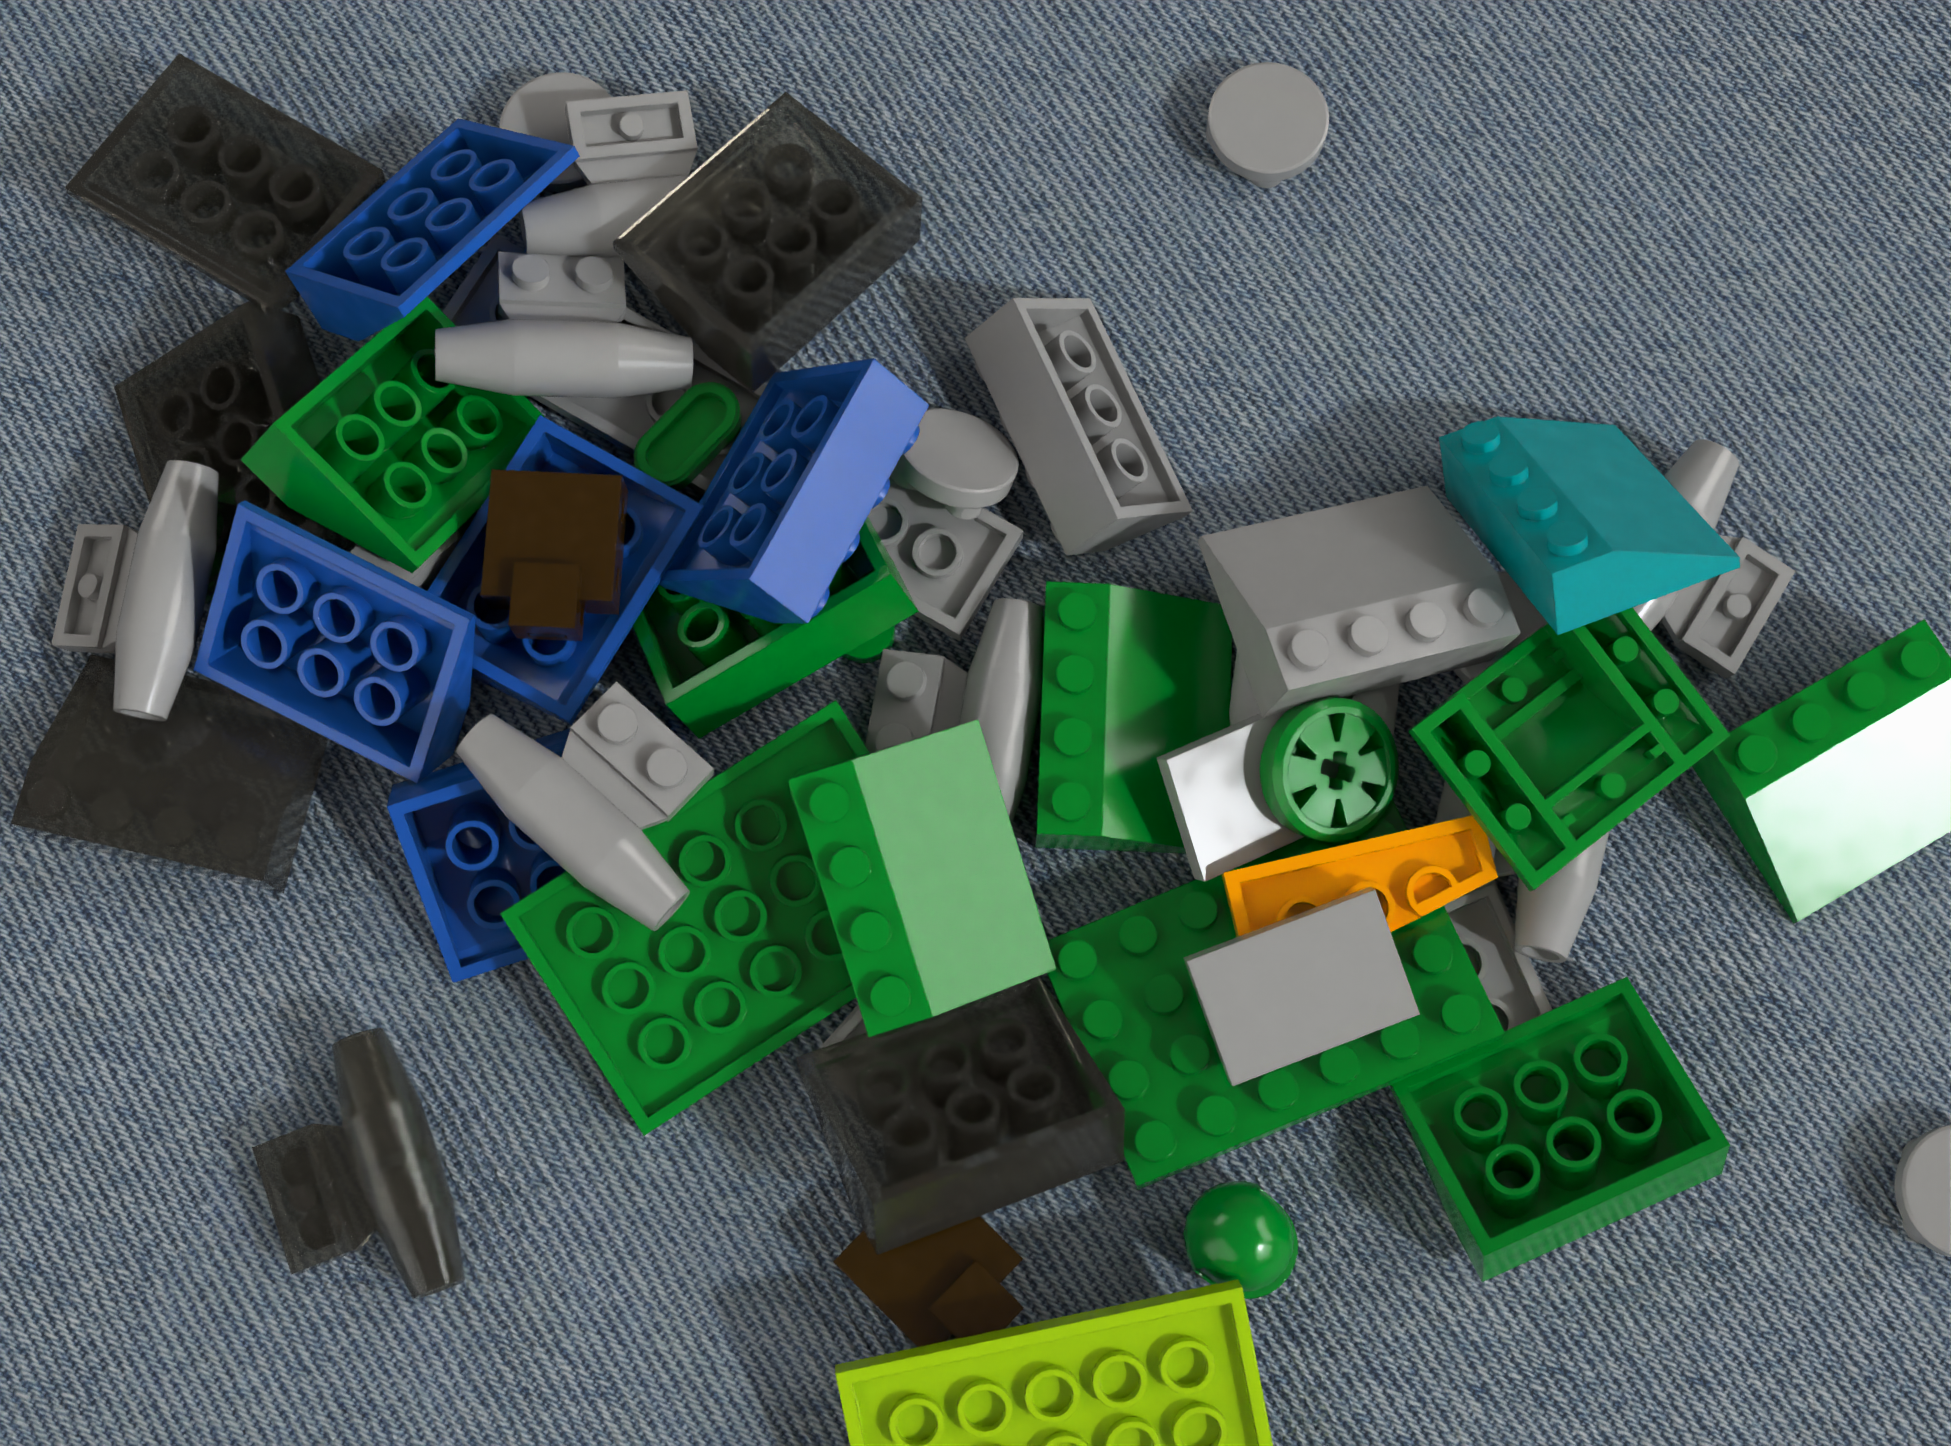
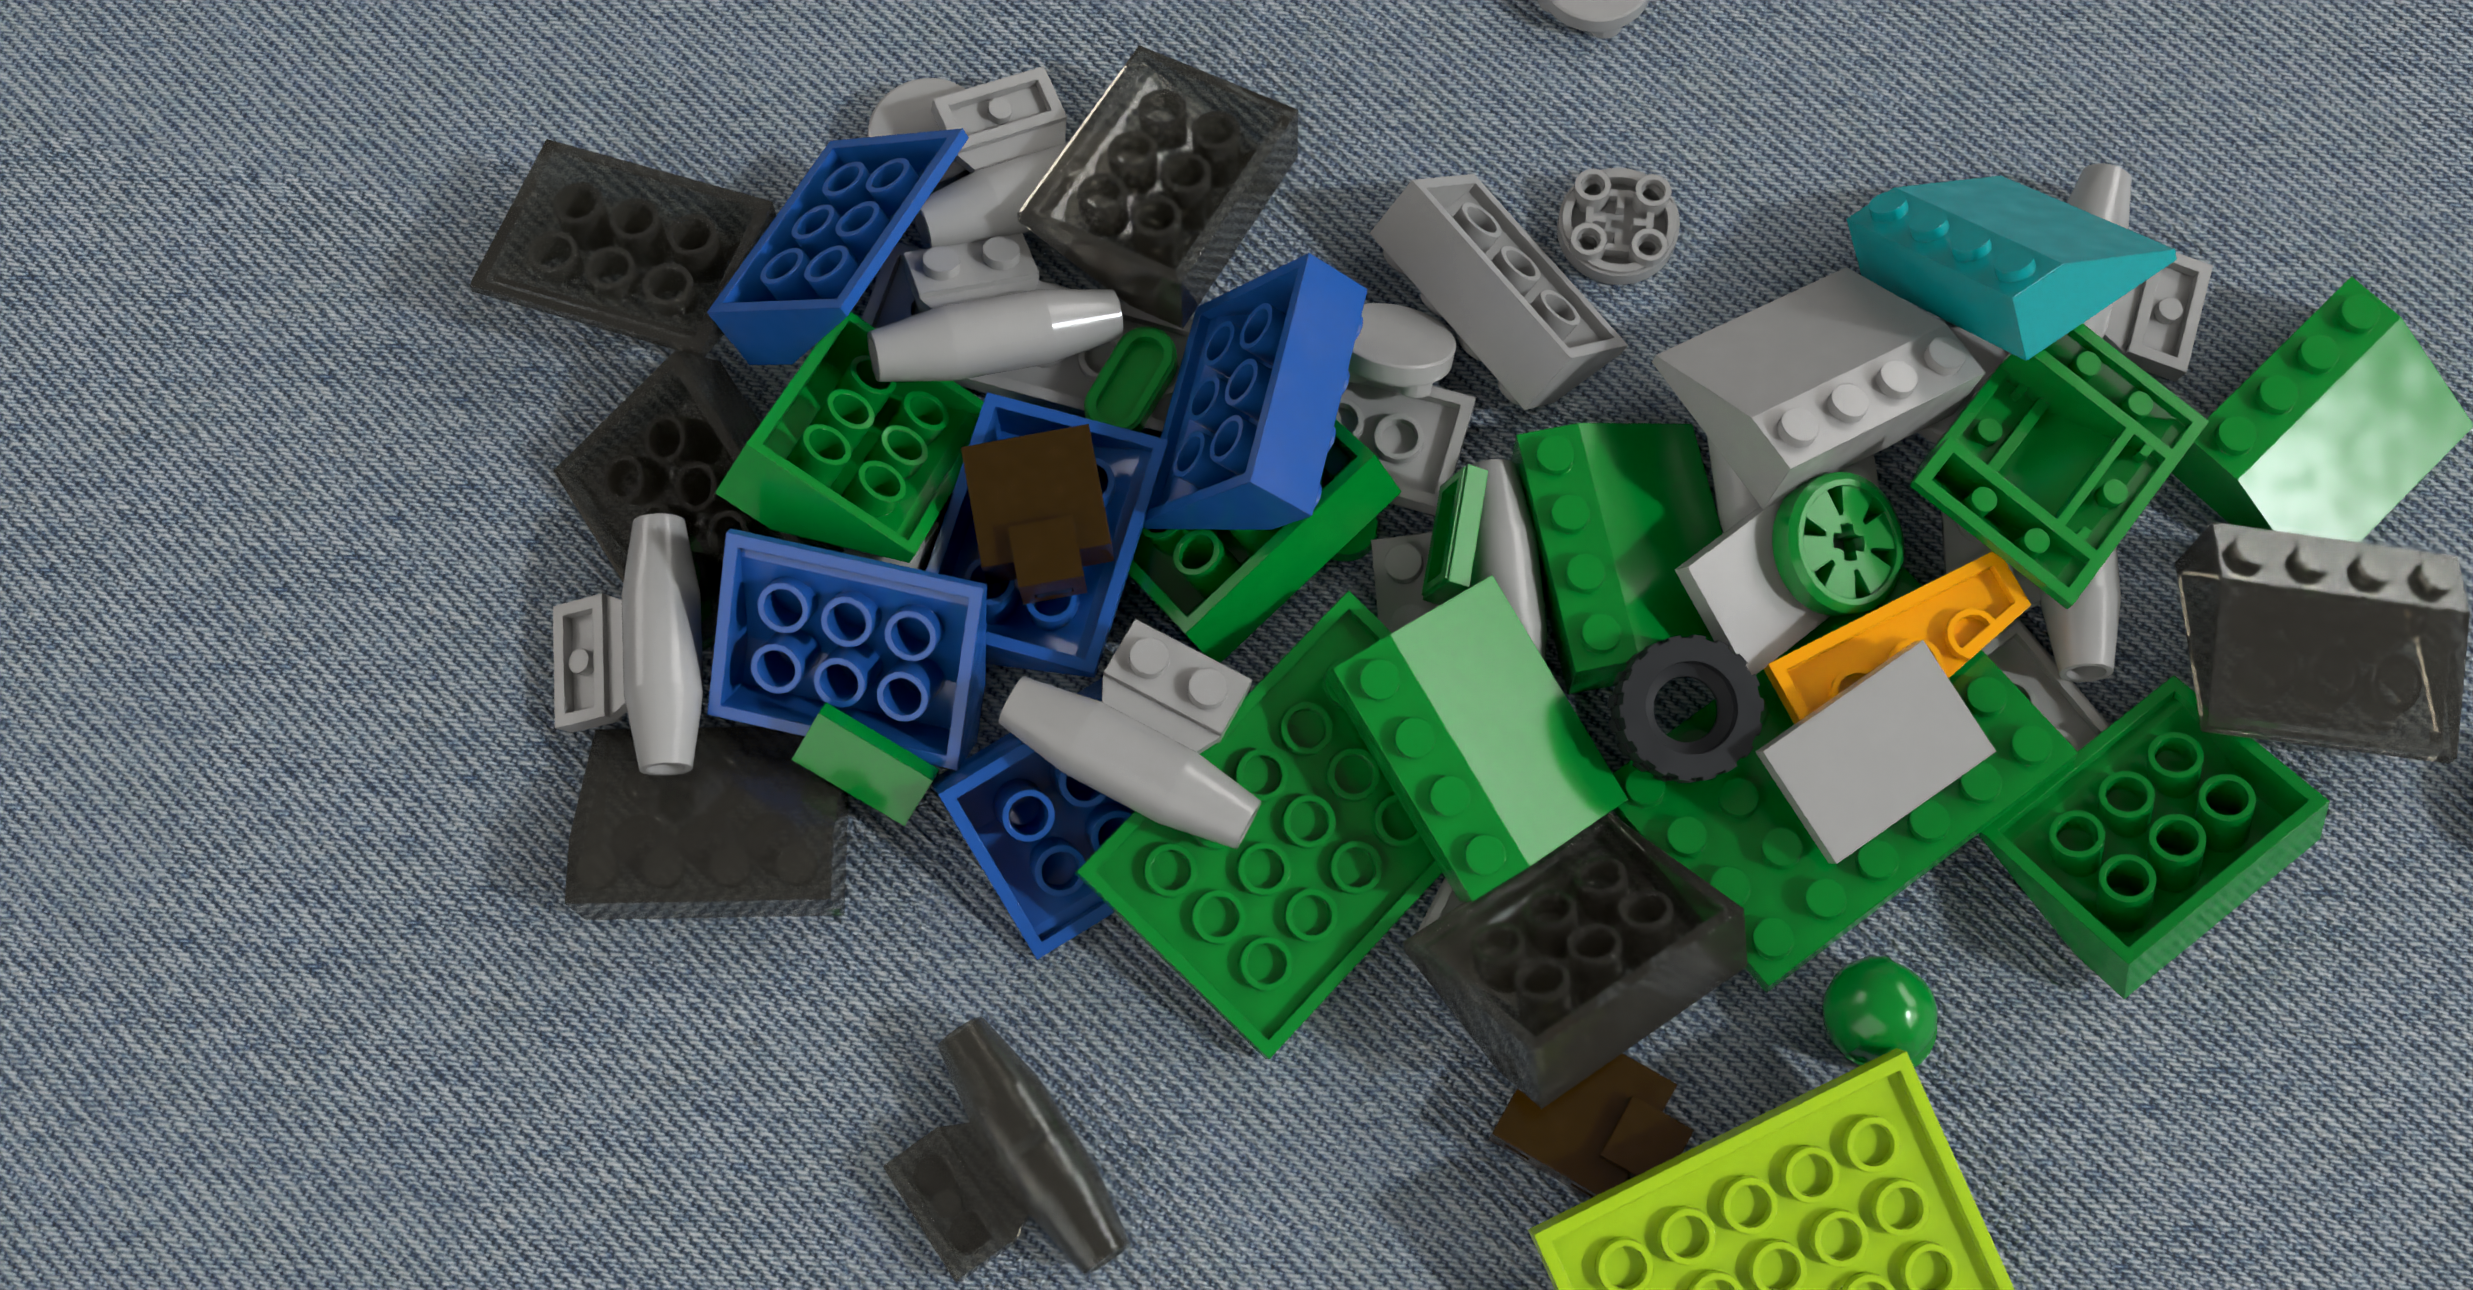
camera: 10 degrees left, 5 degrees down
(330, 756) = (865, 764): none -> green tile
(958, 667) = (1454, 535): none -> green tile
(1180, 907) = (1735, 698): none -> black tyre
(1217, 385) = (1618, 225): none -> light grey tile
(1782, 983) = (2325, 641): none -> clear smoke slope

